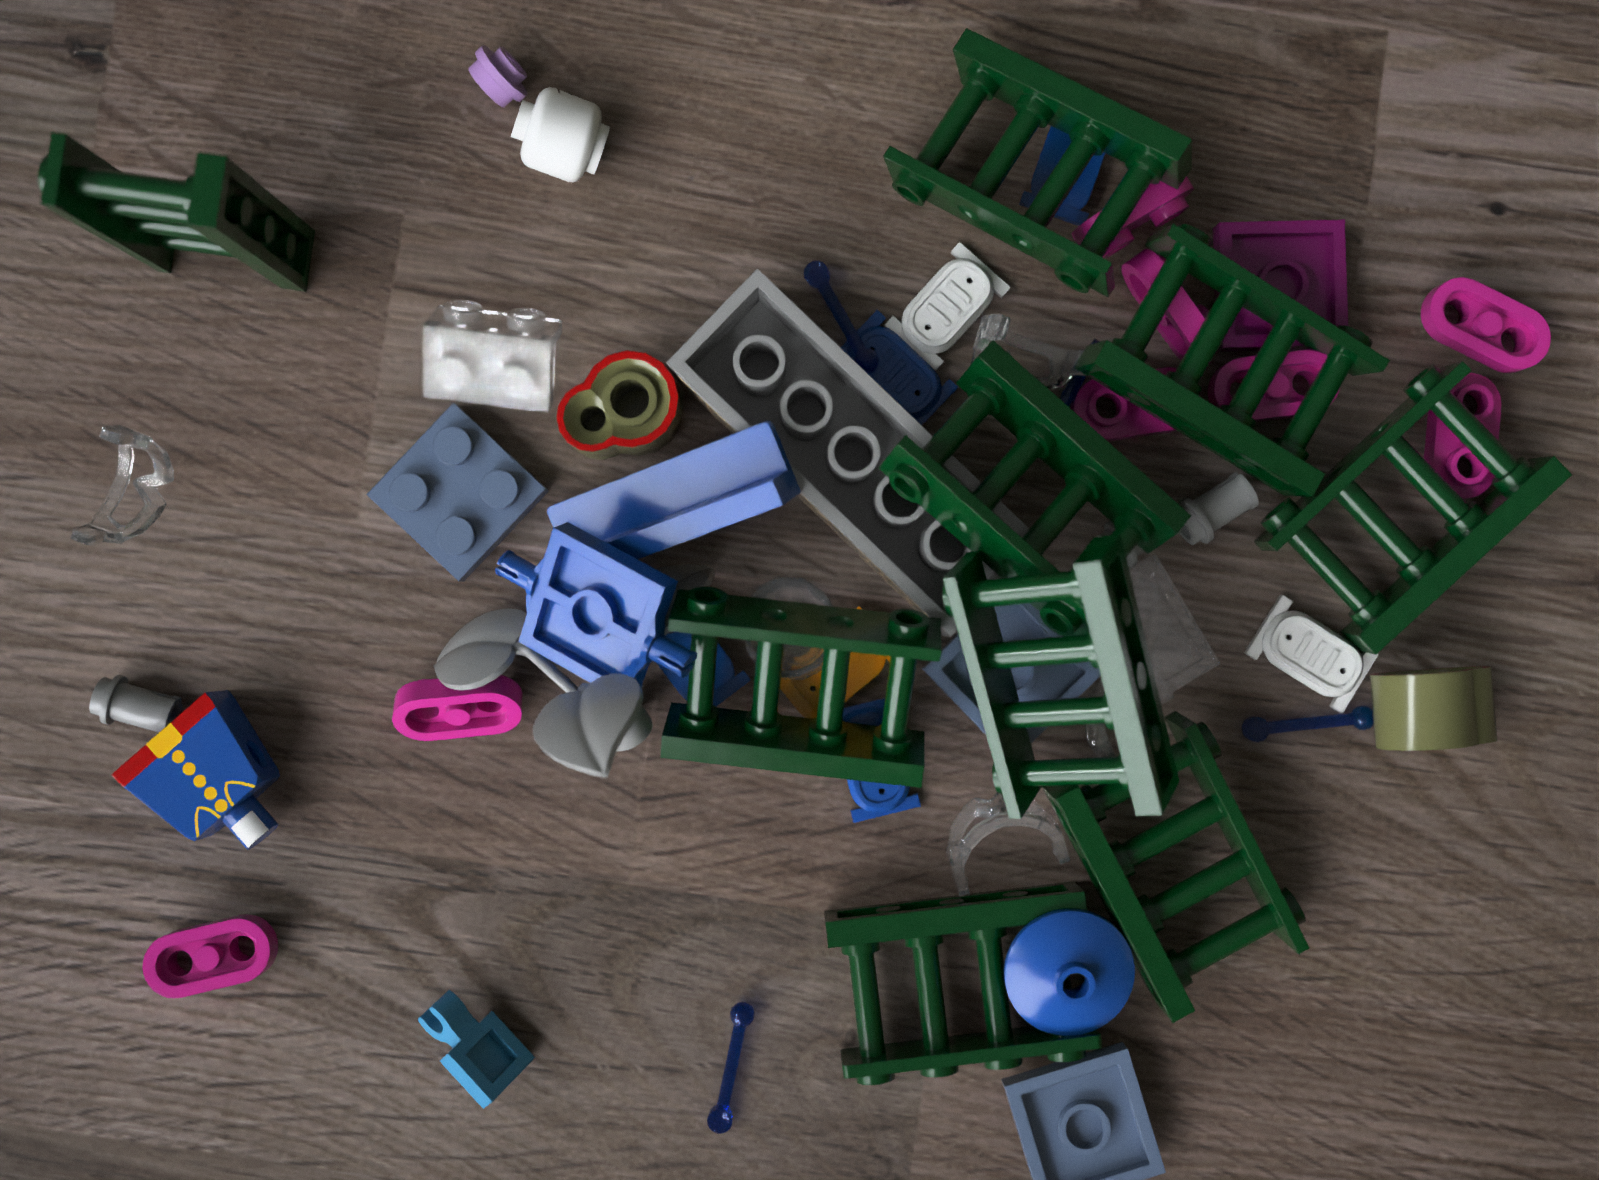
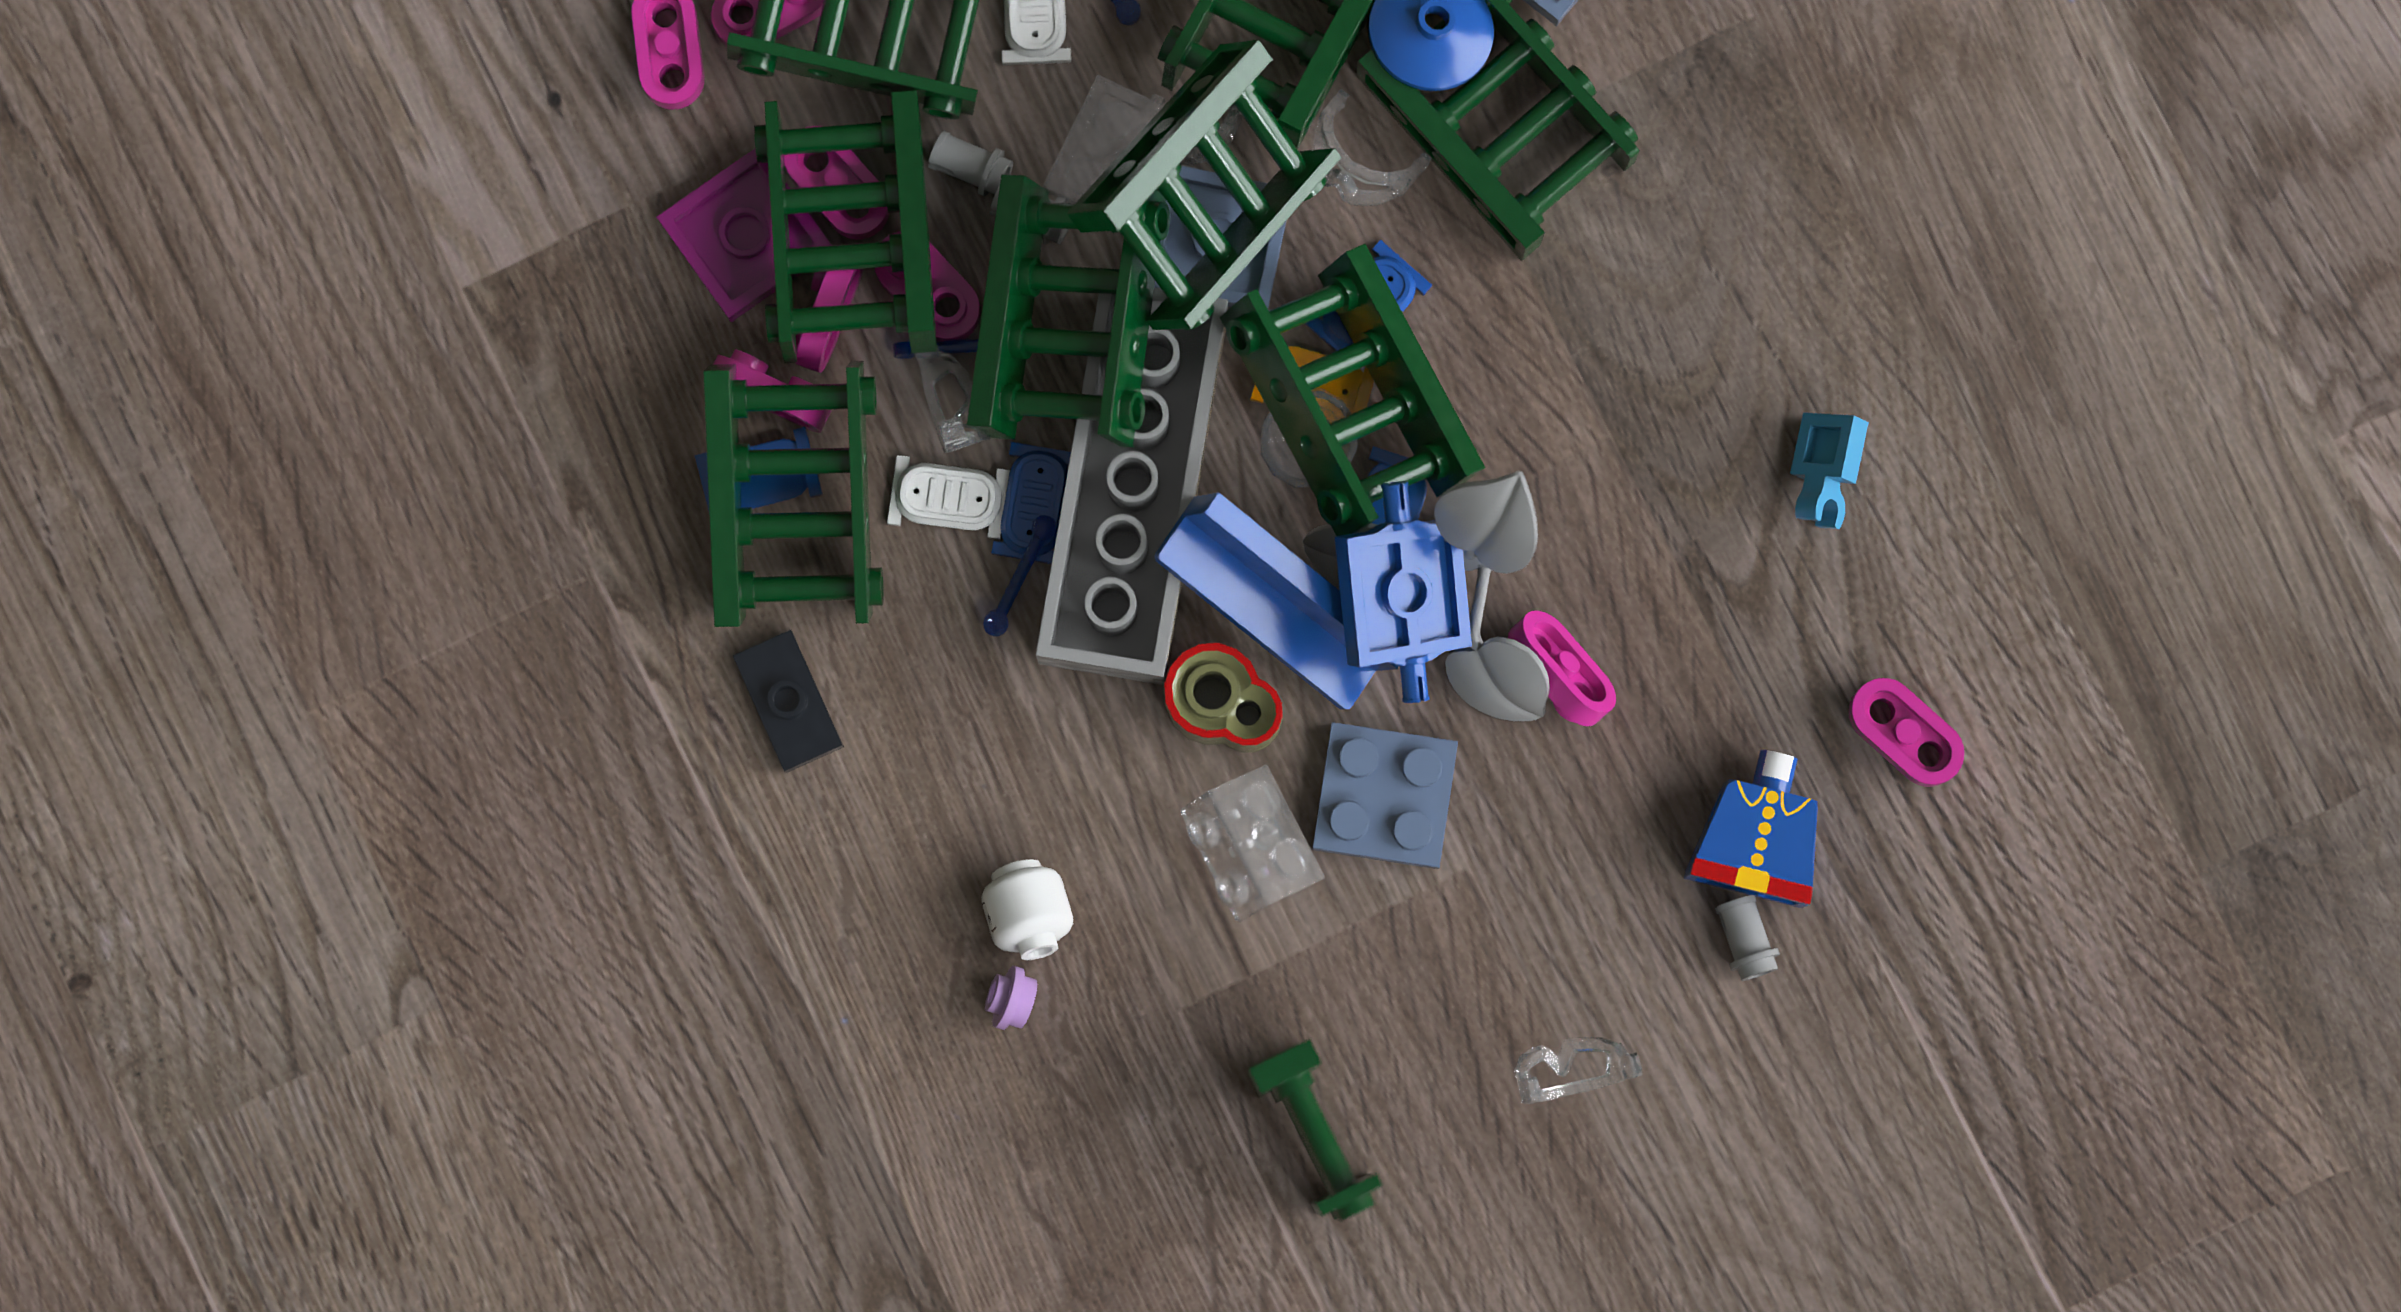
camera: 115 degrees left, 5 degrees down
(721, 1116) = (1747, 232): clear blue hinge -> none
(866, 63) = (788, 701): none -> black plate

